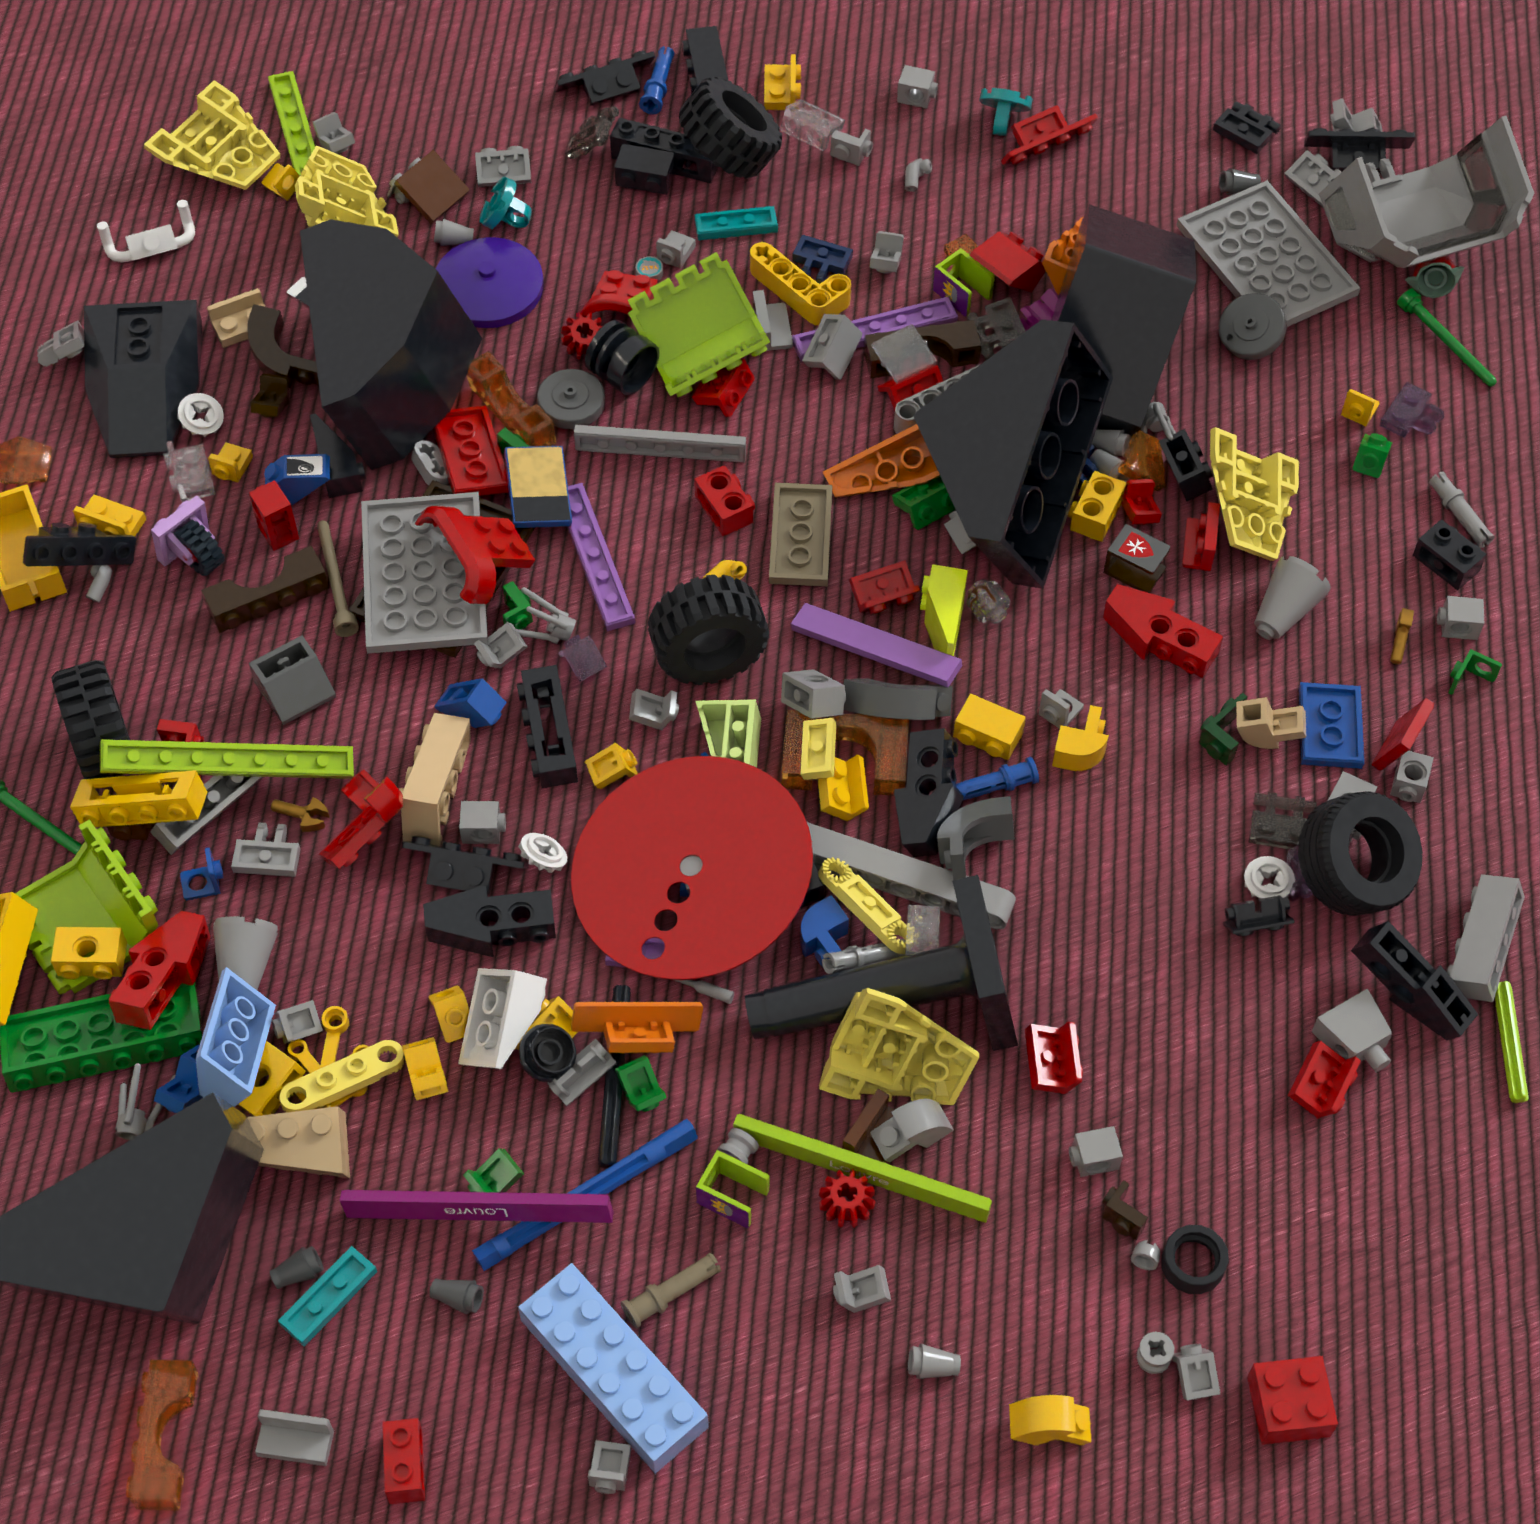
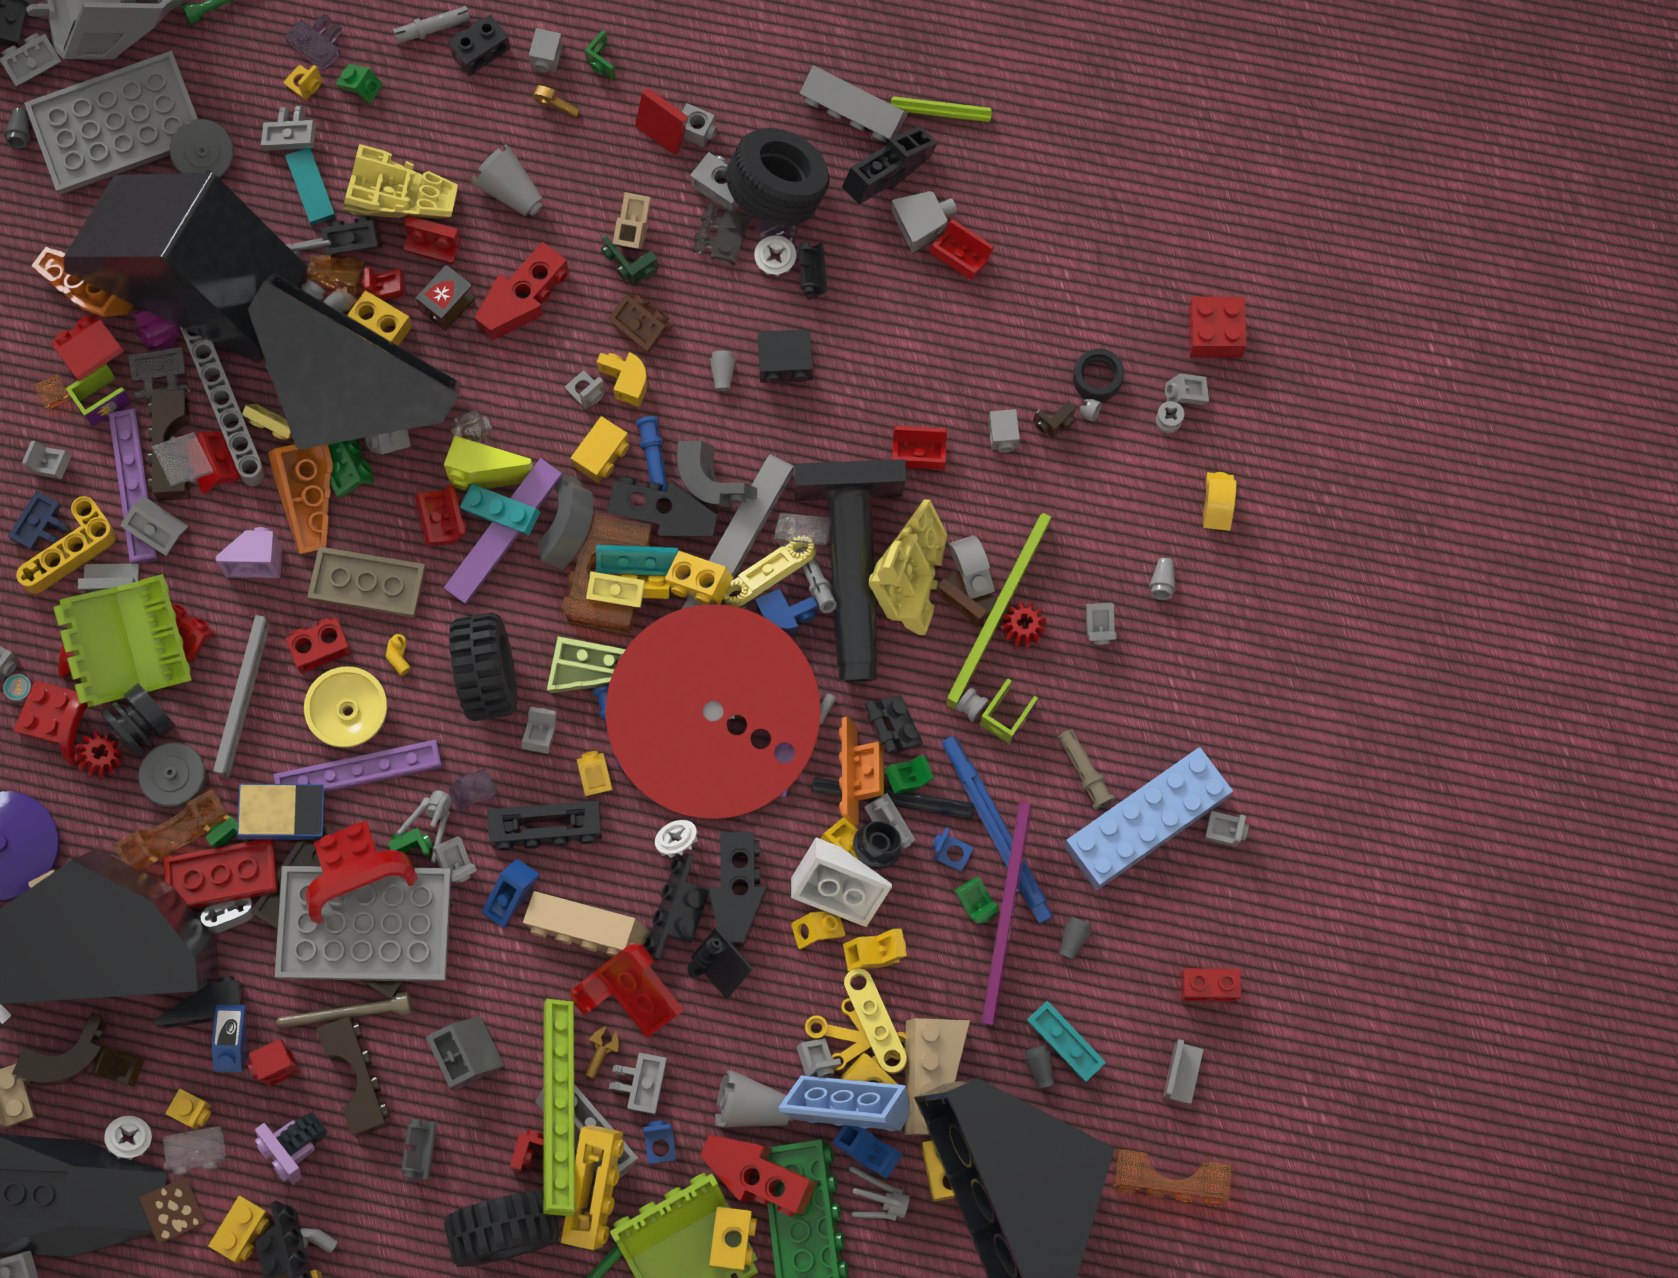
camera: 85 degrees left, 15 degrees up
(129, 461) = (172, 1210): none -> reddish brown sticker
(178, 655) = (418, 1162): none -> dark grey hinge
(407, 896) = (720, 963): none -> black hinge
(481, 822) = (637, 890): light grey brick -> none
(558, 1132) = (941, 846): none -> blue bracket
(656, 516) = (334, 694): none -> light yellow dish
(704, 1069) = (893, 724): none -> black plate
(811, 427) = (252, 555): none -> lavender slope
(813, 693) = (553, 589): light grey brick -> none
(842, 828) = (701, 574): none -> yellow brick
(859, 771) = (634, 560): none -> teal tile
(895, 632) = (500, 509): none -> teal plate
(1112, 839) = (722, 368): none -> light grey cone
(1141, 901) = (785, 356): none -> black bracket
(1154, 749) = (640, 320): none -> reddish brown bracket
(1246, 425) = (310, 186): none -> teal tile
(1296, 400) = (287, 133): none -> light grey hinge
(1332, 725) = (633, 173): blue tile -> none

